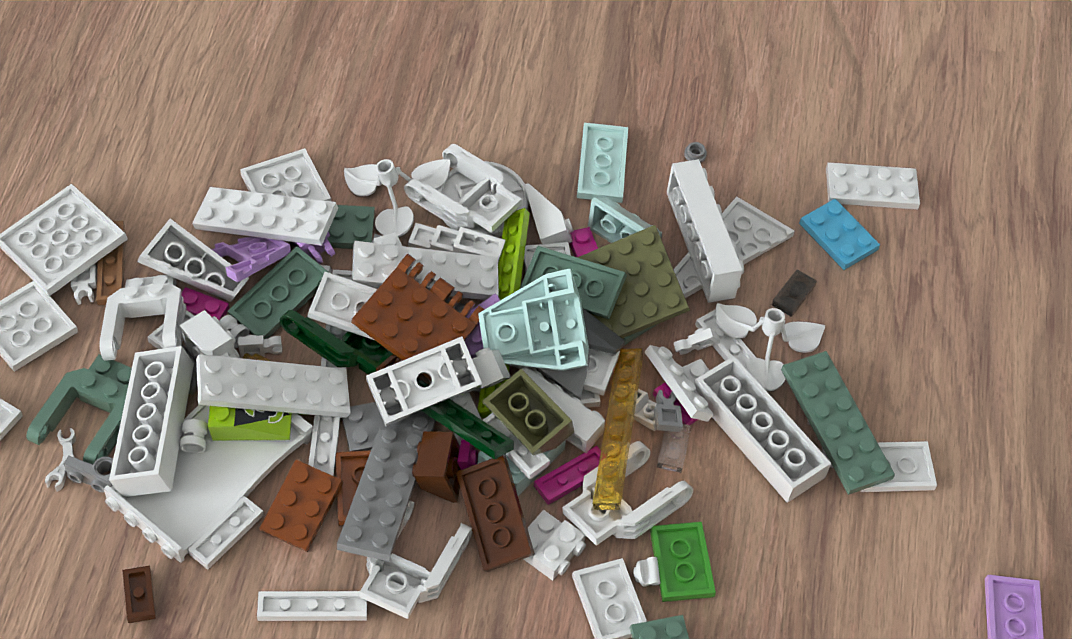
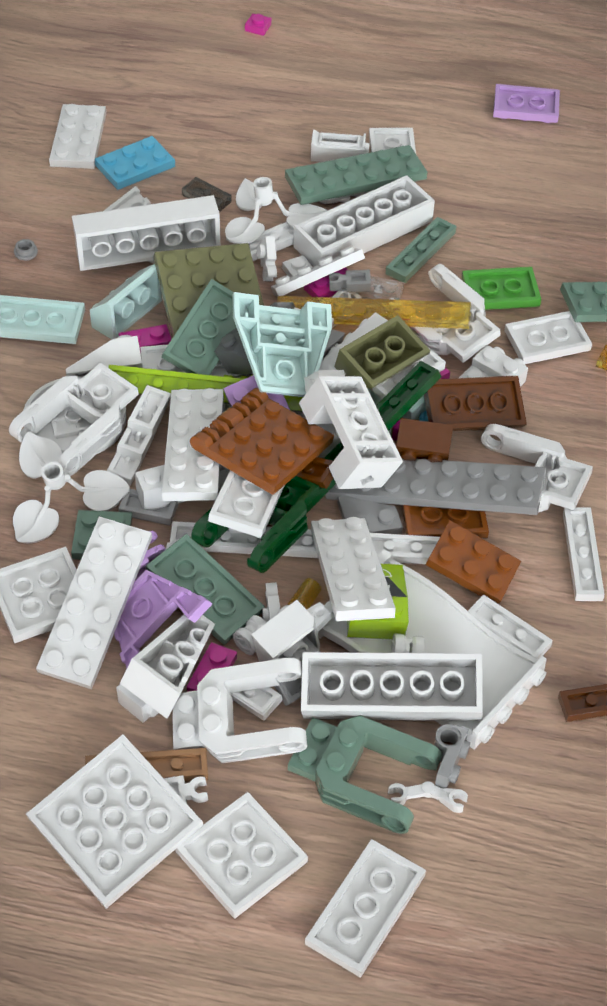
camera: 85 degrees left, 5 degrees down
(647, 572) = (515, 309): white plate -> none
(735, 487) = (420, 250): none -> sand green plate
(890, 411) = (335, 146): none -> white window

